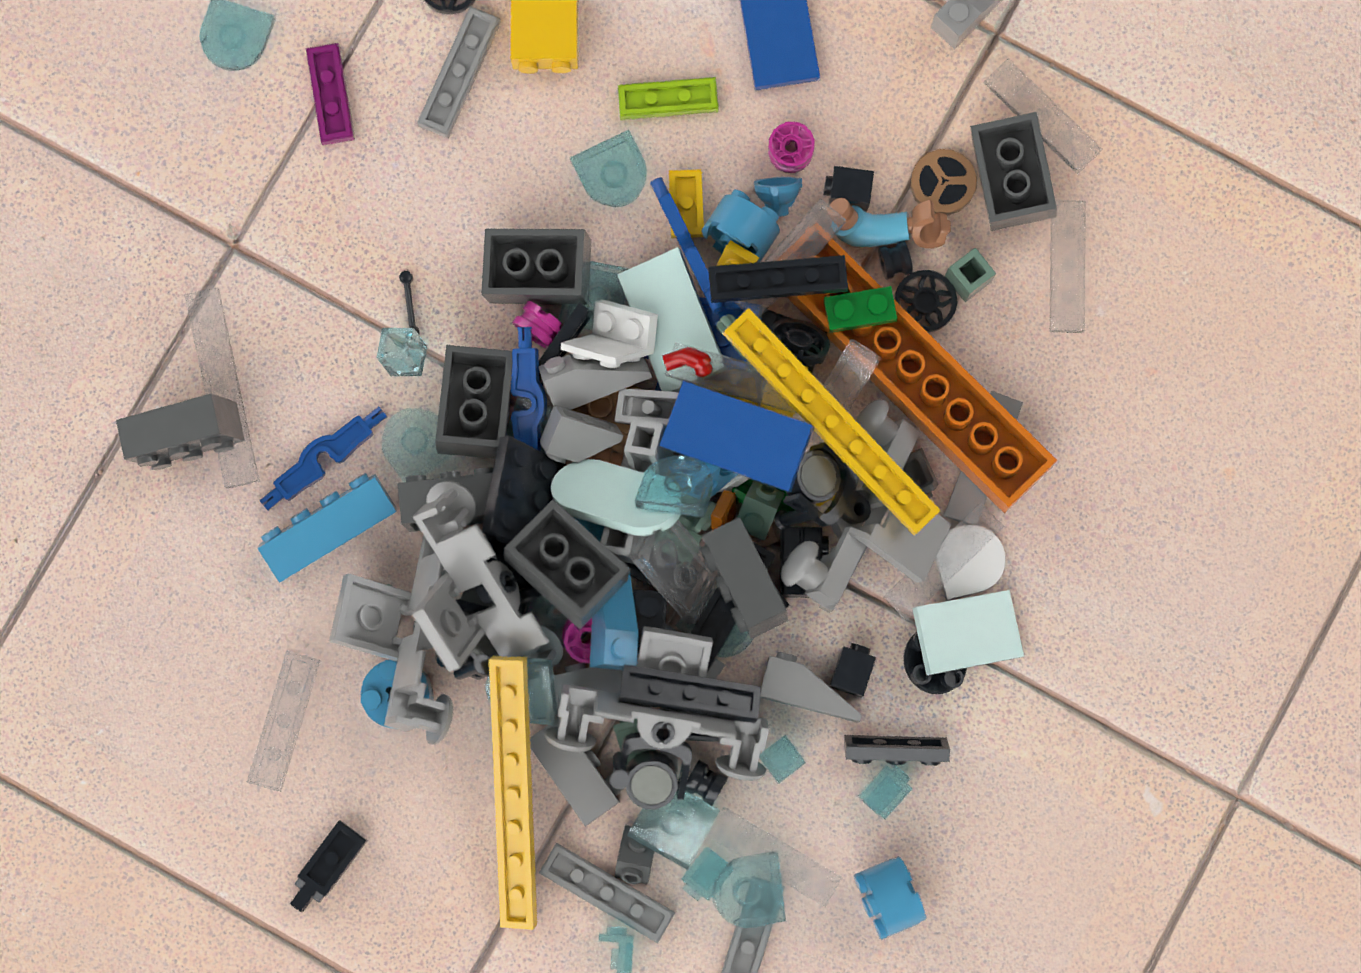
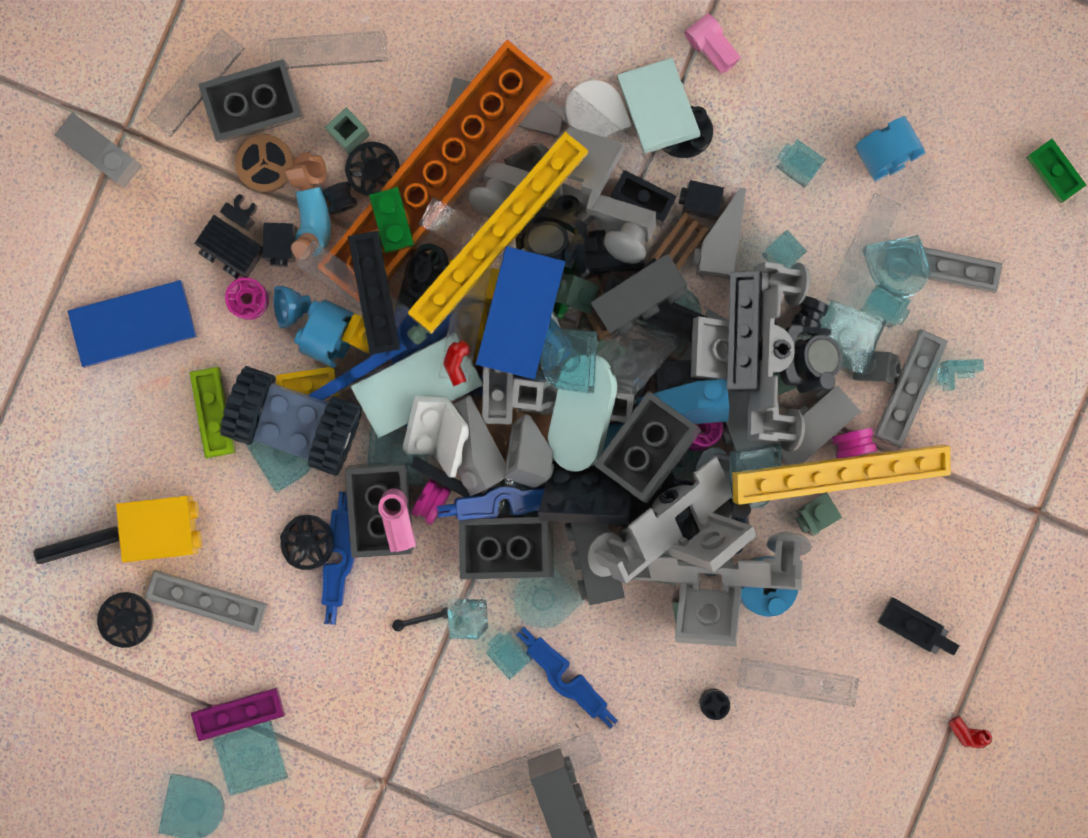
camera: 100 degrees left, 5 degrees up
(194, 913) = (970, 737): none -> red arm
(264, 620) = (715, 710): none -> black wheel
(279, 102) = (250, 758): none -> clear light blue tile
(327, 527) = (629, 665): dark azure brick -> none
(357, 393) = (507, 654): none -> clear light blue brick
(471, 214) = (335, 574): none -> blue piece
(472, 765) = (817, 514): none -> sand green bracket
(510, 186) = (307, 542): none -> black wheel
(516, 279) = (397, 523): none -> bright pink piece
(548, 815) = (854, 443): none -> dark pink wheel
(646, 177) = (290, 420): none -> plate
(724, 510) = (580, 322): orange tile -> none
(825, 660) = (694, 224): none -> medium nougat tile
(851, 132) = (230, 247): none -> black brick
(860, 601) = (644, 194): none -> black brick
(886, 146) = (238, 215): none -> black tile
(896, 749) = (763, 156): plate -> none
(1041, 701) = (708, 37): none -> bright pink piece

